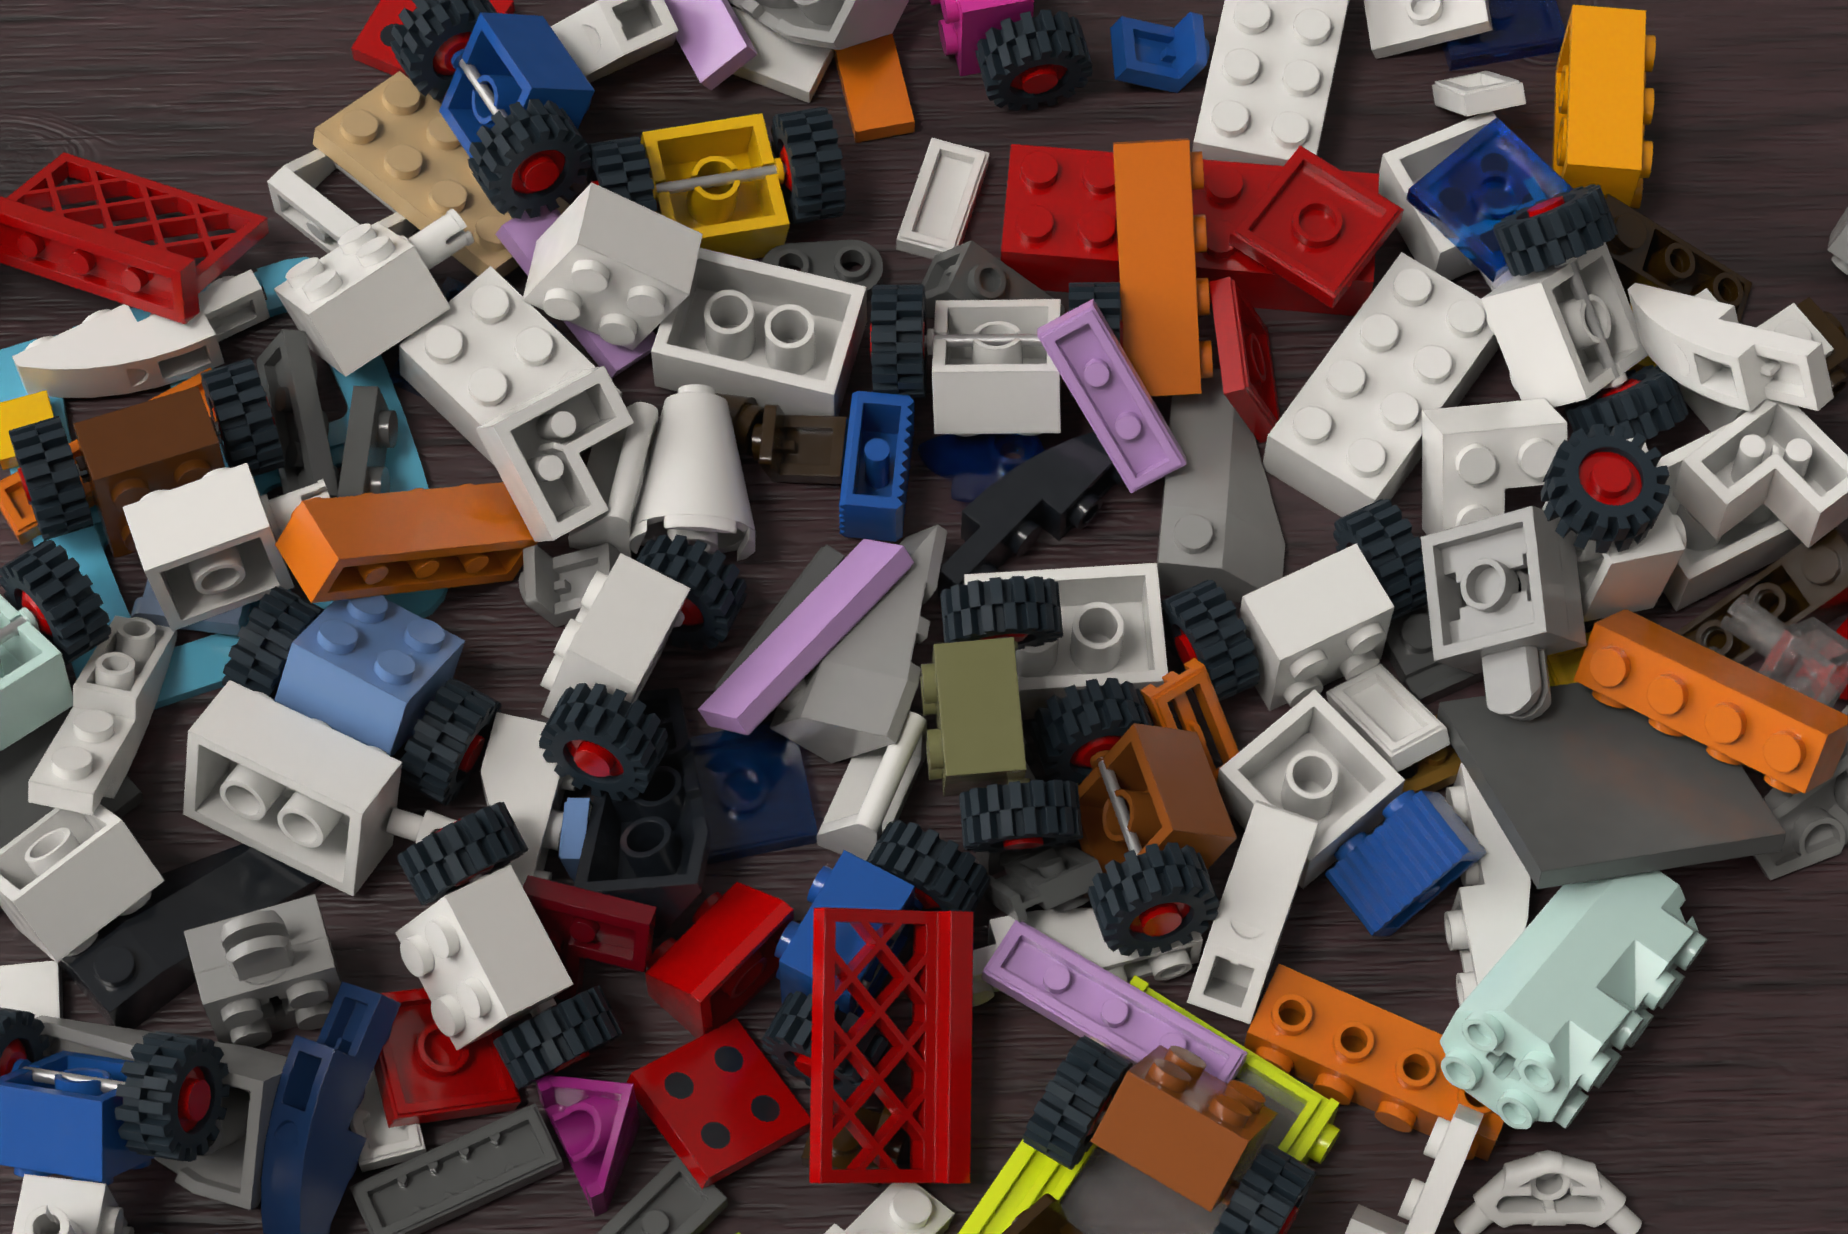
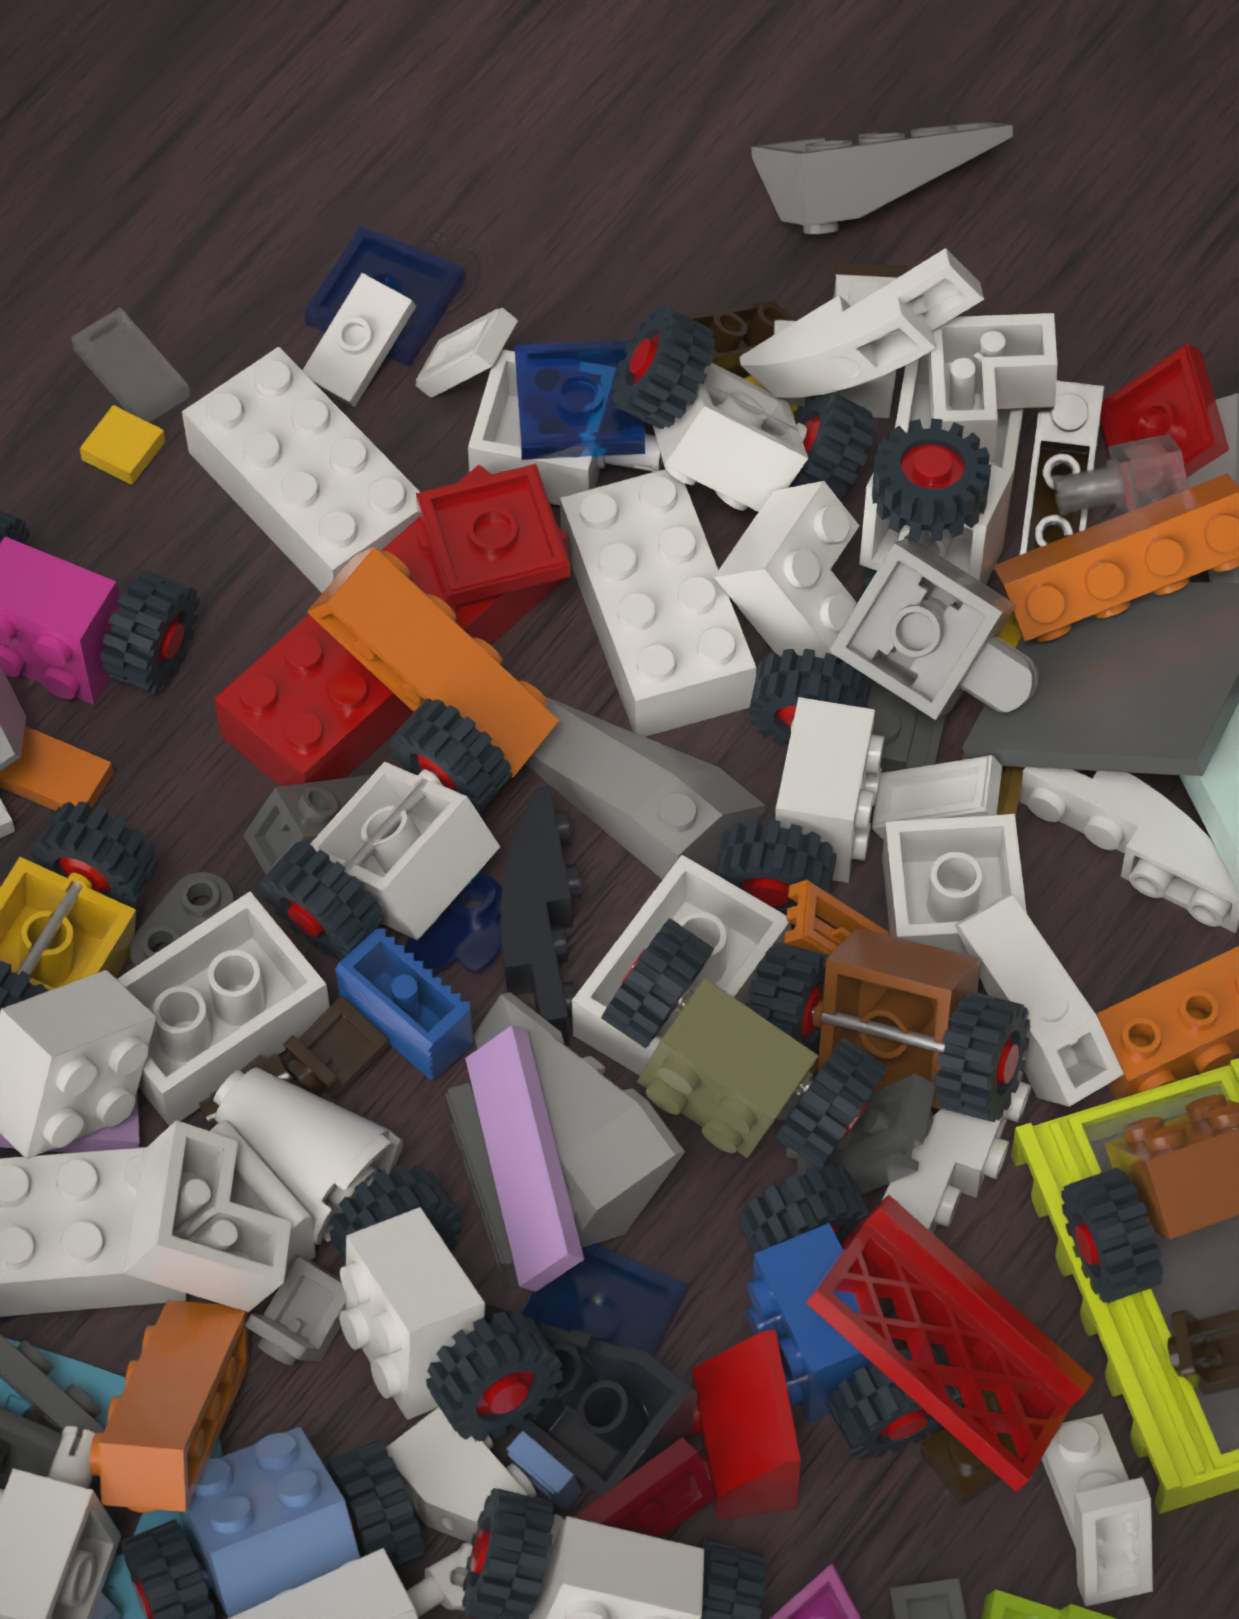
camera: 50 degrees left, 5 degrees down
(719, 1103) = (870, 1524): red tile -> none
(874, 791) = (695, 1220): white tile -> none
(942, 199) = (197, 794): white tile -> none
(1099, 1003) = (1022, 1168): lavender tile -> none
(1111, 396) = (518, 776): lavender tile -> none
(1158, 53) = (218, 545): blue bracket -> none
(1244, 358) = (553, 671): red tile -> none
(1403, 861) = (1073, 868): blue brick -> none
(1604, 102) = (554, 274): light orange brick -> none

